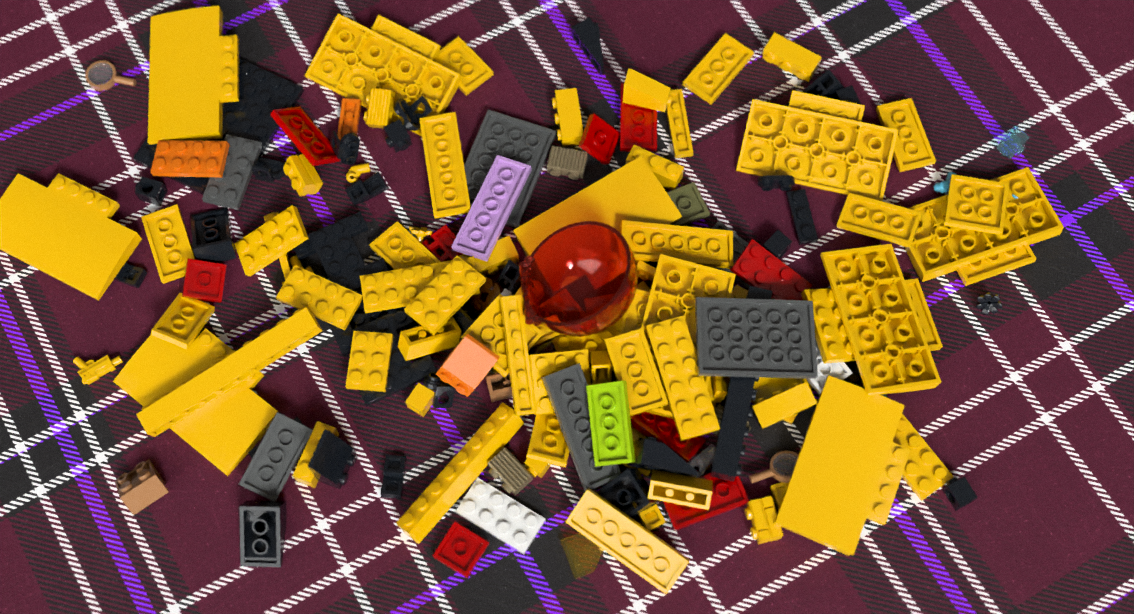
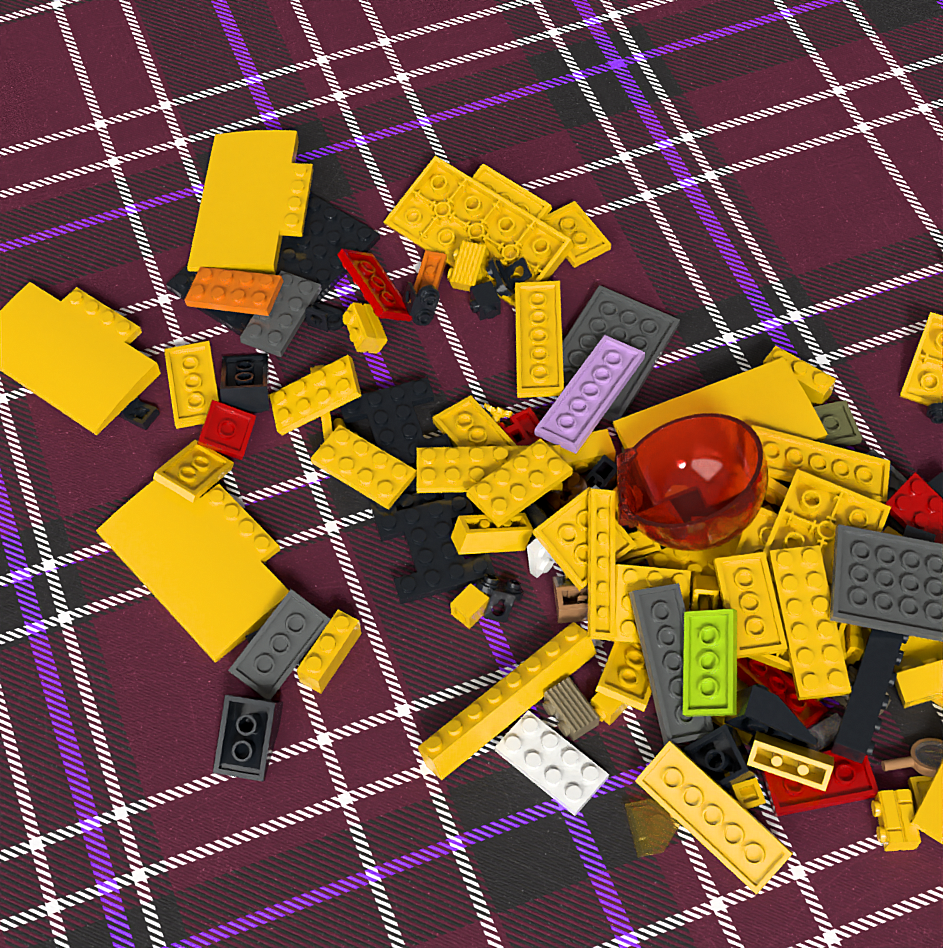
camera: 10 degrees right, 10 degrees down
(93, 370) = (75, 514): yellow piece -> none
(103, 76) = (149, 191): piece -> none
(140, 487) = (107, 657): medium nougat slope -> none
(154, 197) = (180, 322): black brick -> none
(229, 372) = (239, 535): yellow brick -> none
(332, 460) = (349, 658): black slope -> none
(355, 172) = (427, 334): yellow arm -> none
(366, 190) = (438, 357): black slope -> none
(369, 361) = (413, 549): yellow plate -> none
(393, 476) = (421, 693): black slope -> none
(461, 549) = (495, 795): red plate -> none
(467, 365) = (536, 567): slope -> none
(567, 162) = (689, 357): dark tan brick -> none
(568, 116) = (697, 307): yellow brick -> none
(588, 39) = (731, 223): black slope -> none
(599, 139) = (732, 335): red plate -> none
(637, 126) = (784, 316): red plate -> none
(645, 92) = (797, 287): yellow slope -> none
(679, 126) = (832, 332): yellow plate -> none
(718, 68) = (889, 276): yellow plate -> none

